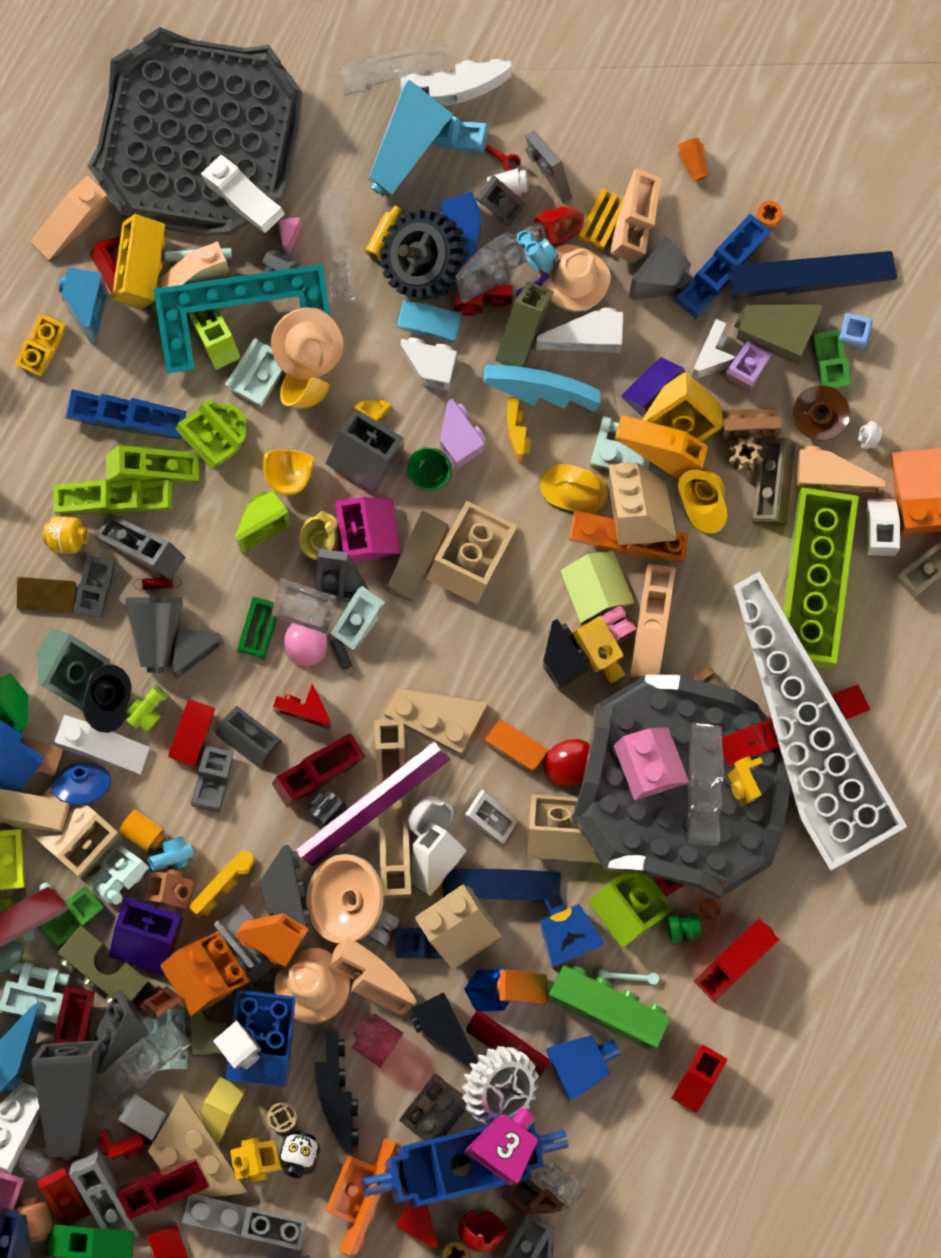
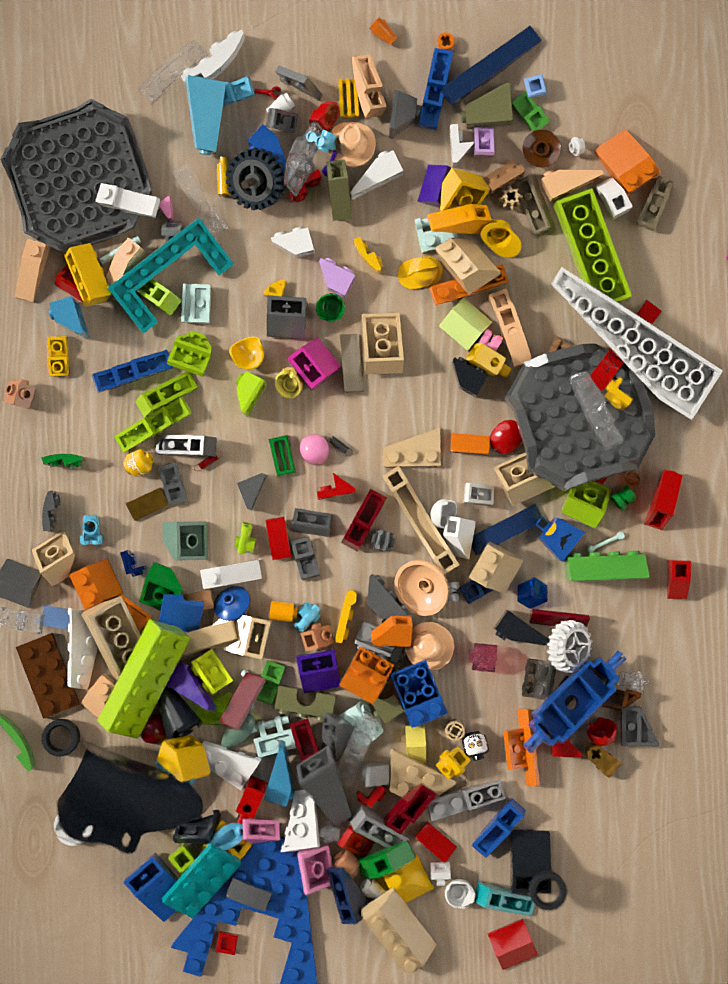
camera: 25 degrees left, 10 degrees up
(107, 698) = (218, 546): black piece -> none
(117, 870) = (284, 639): light aqua plate -> none
(154, 629) = (222, 489): dark grey cone -> none
(157, 1001) = (348, 705): copper slope -> none
(238, 1046) = (411, 708): white slope -> none
(303, 393) = (228, 300): yellow helmet -> none
(304, 606) = (303, 430): clear slope -> none
(307, 343) = (216, 270): light nougat hat -> none
(337, 575) = (314, 401): dark grey wing -> none
(337, 1105) = (481, 706): black slope -> none
(358, 618) = (338, 419): light aqua slope -> none
(371, 977) = (461, 623): light nougat slope -> none
(373, 804) = (408, 524): magenta tile -> none
(429, 320) = (279, 216): medium azure slope -> none
(505, 1146) = (594, 680): dark pink torso -> none
(522, 987) = (551, 582): orange slope -> none
(533, 384) = (363, 223): medium azure slope -> none
(581, 1063) = (607, 607): blue torso -> none
(650, 762) = (559, 415): bright pink slope -> none

